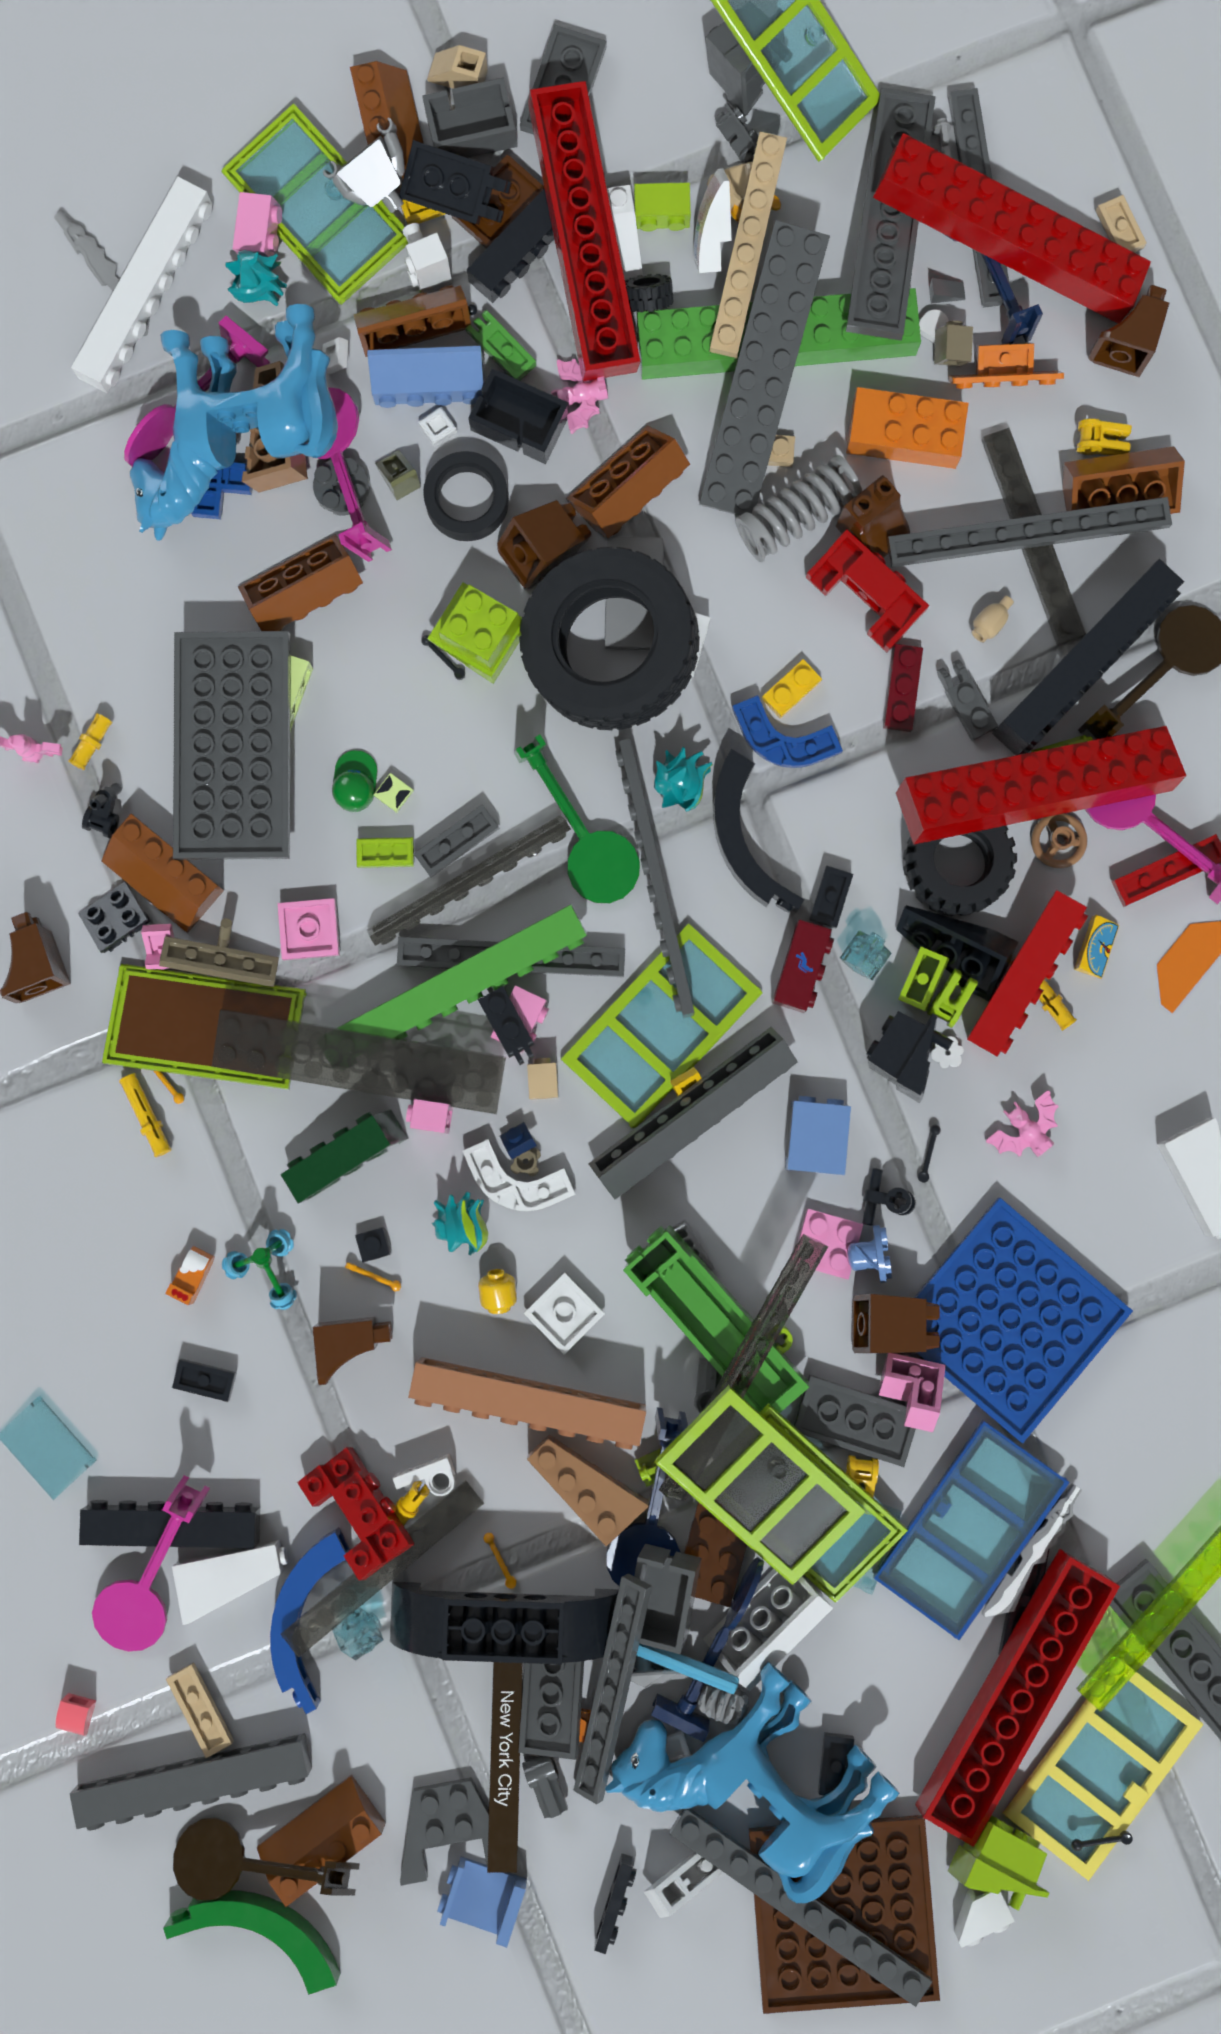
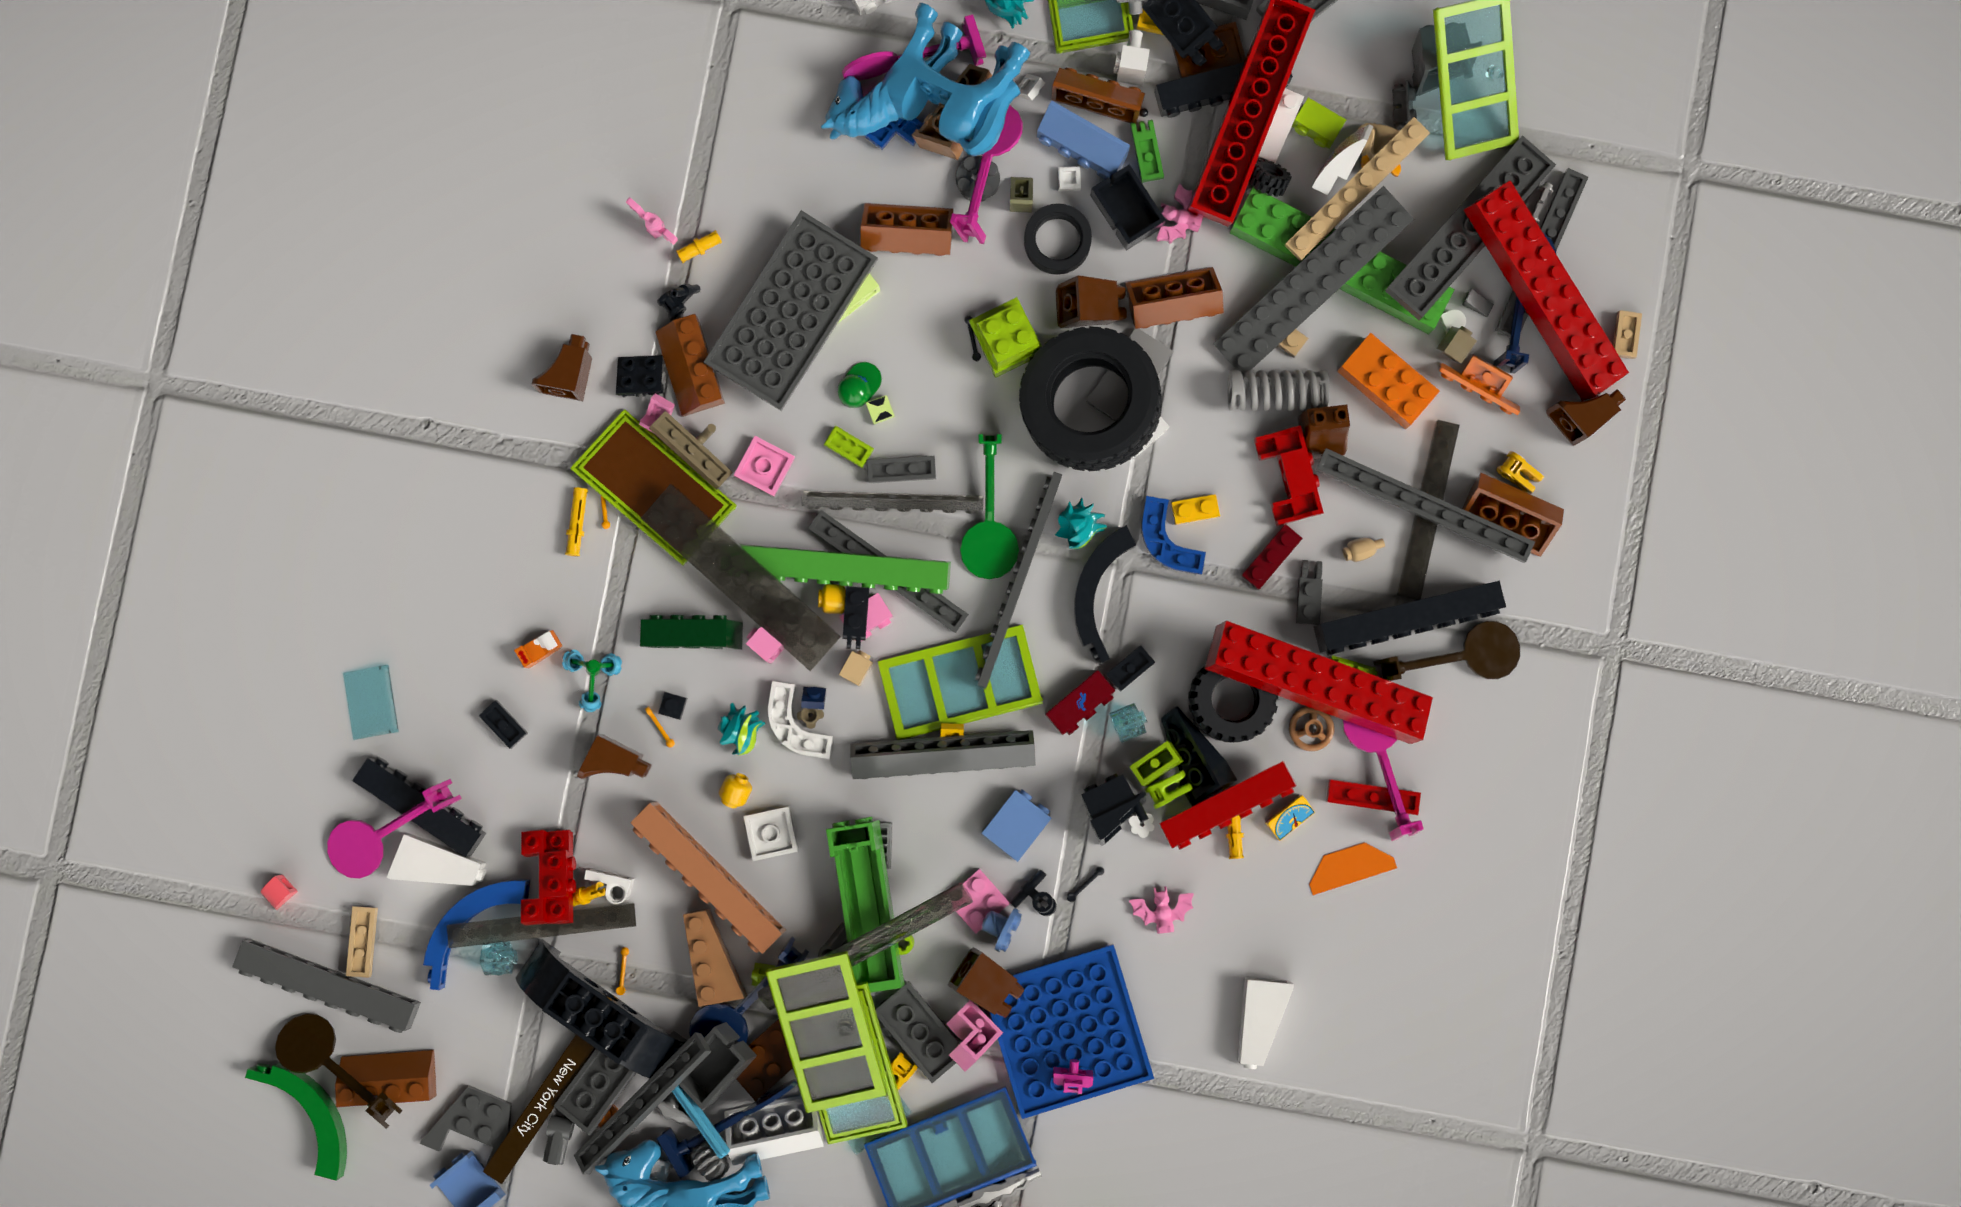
camera: 30 degrees right, 0 degrees up
(470, 1023) = (832, 598): none -> yellow head
(1050, 1364) = (1073, 1077): none -> dark pink piece

